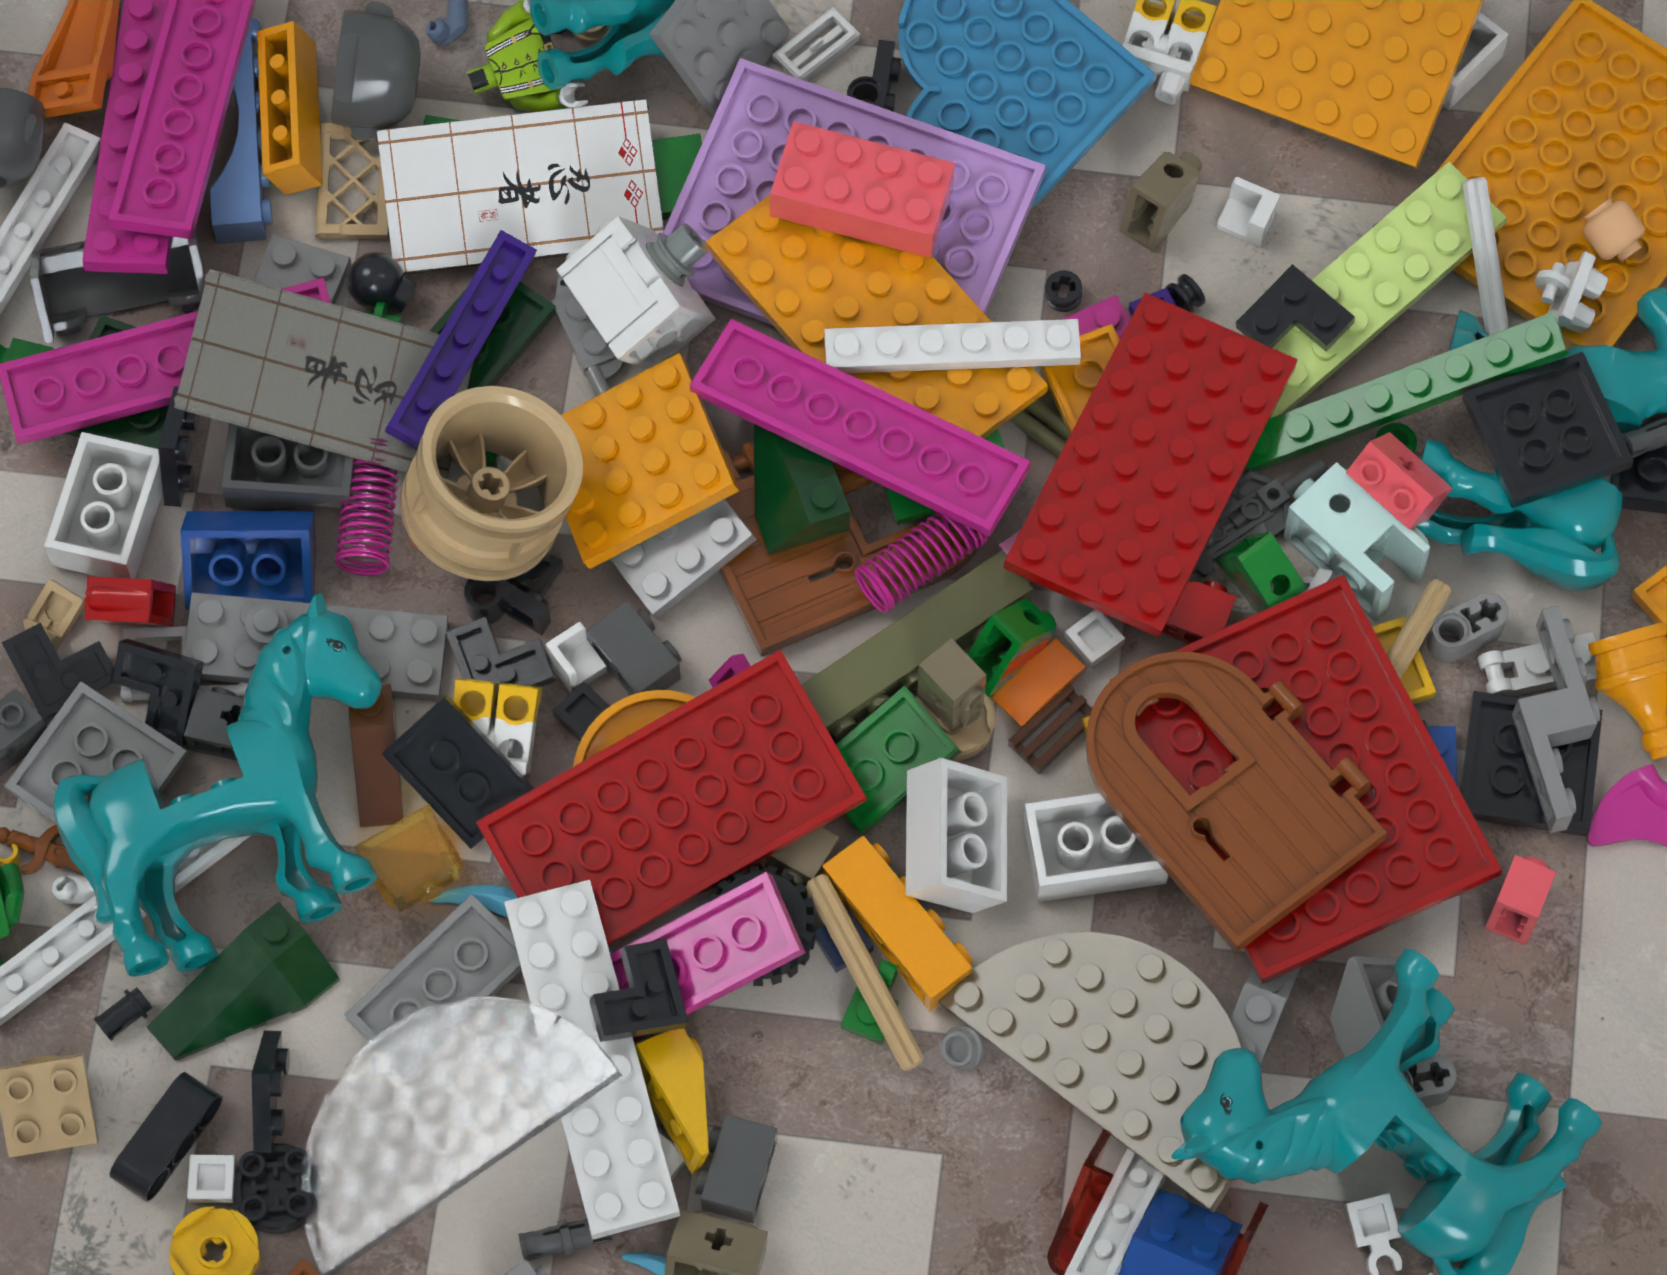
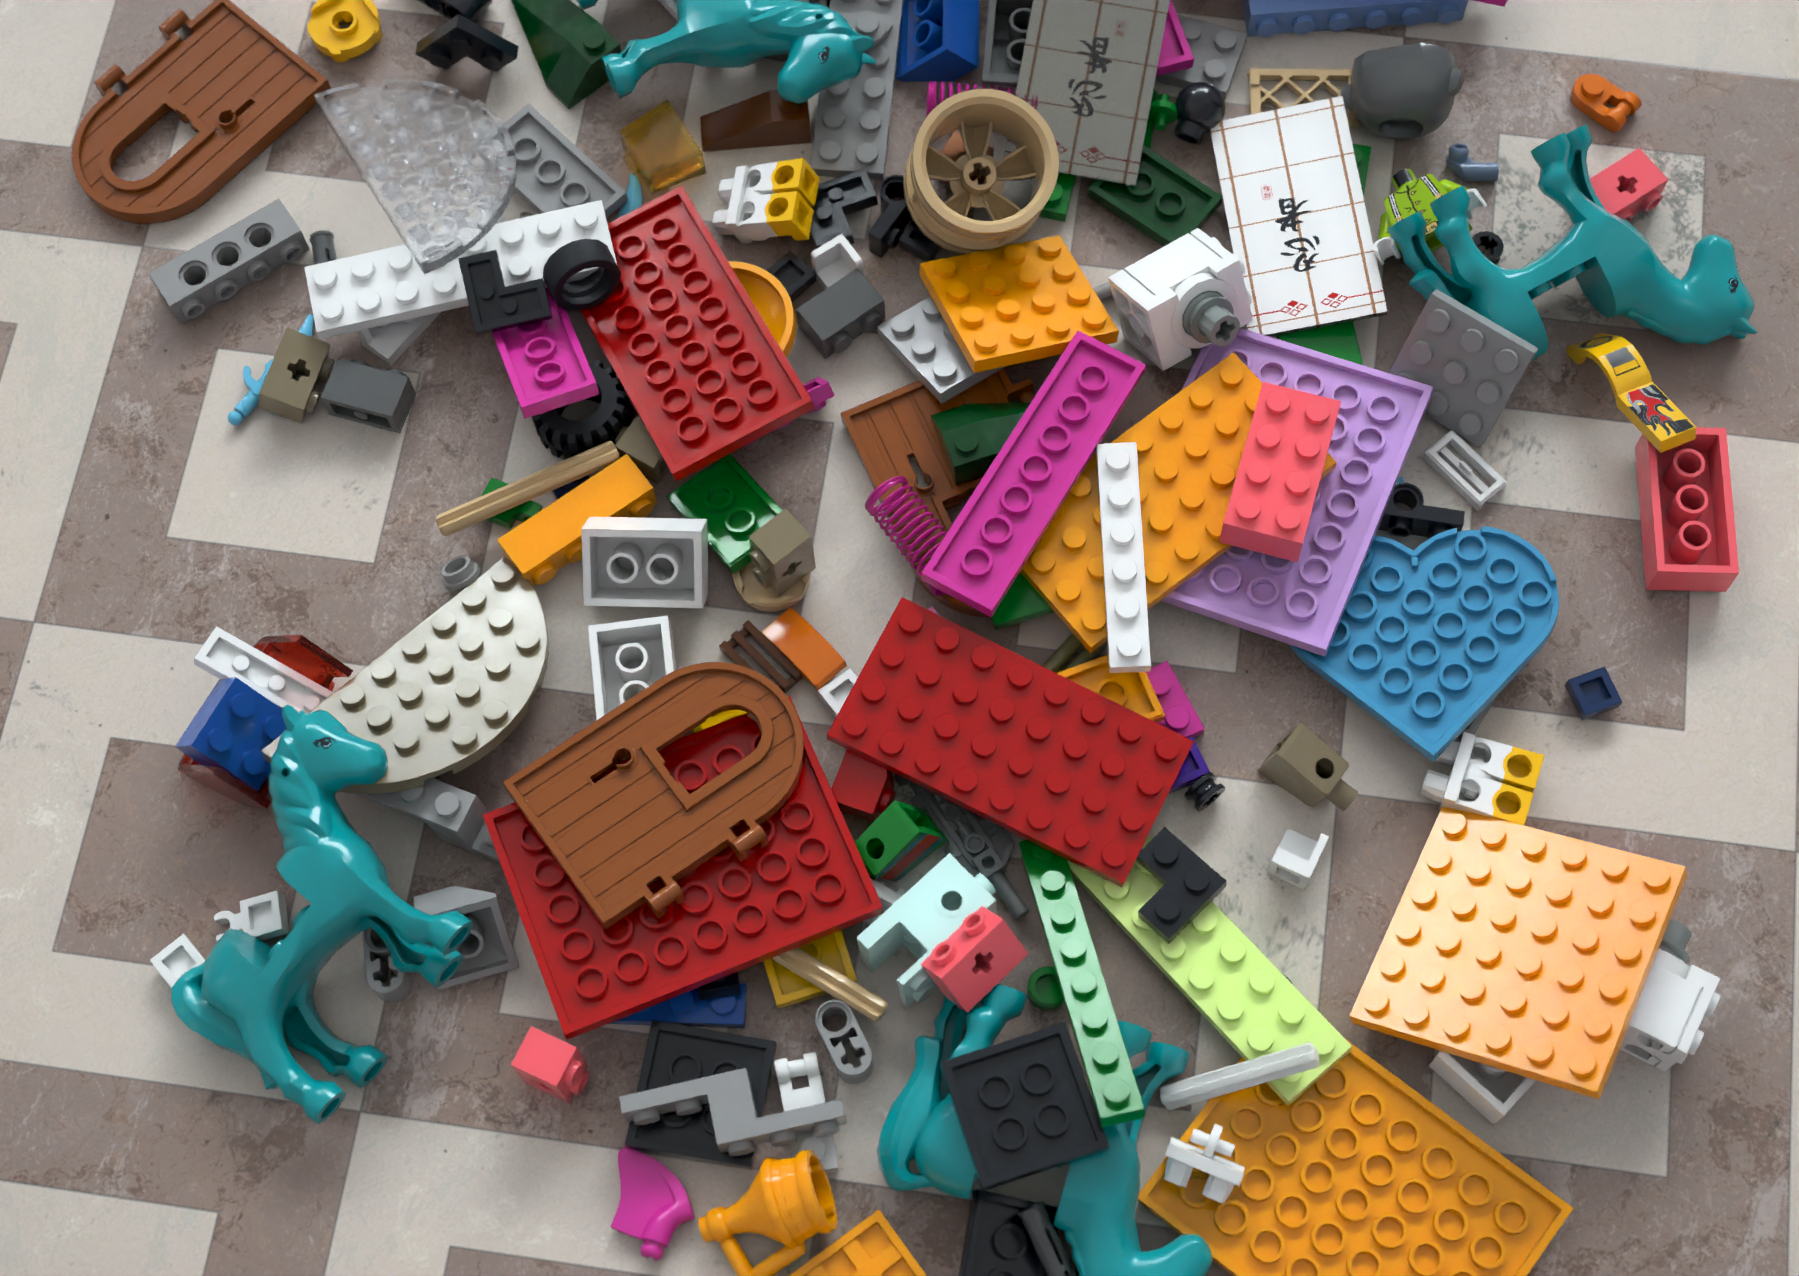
camera: 95 degrees right, 0 degrees up
(211, 1178) = (403, 20): white plate -> none
(270, 1189) = (391, 59): black tile -> none
(289, 108) = (1344, 33): light orange brick -> none
(456, 769) = (731, 170): black tile -> none
(462, 337) = (1140, 165): dark purple plate -> none
(615, 906) = (574, 258): none -> black tyre
(676, 1091) = (437, 345): yellow slope -> none
(891, 658) = (836, 532): olive brick -> none
(1019, 631) = (835, 615): green torso -> none
(1073, 297) = (1220, 678): black bush -> none
(1613, 230) = (1278, 1213): light nougat head -> none

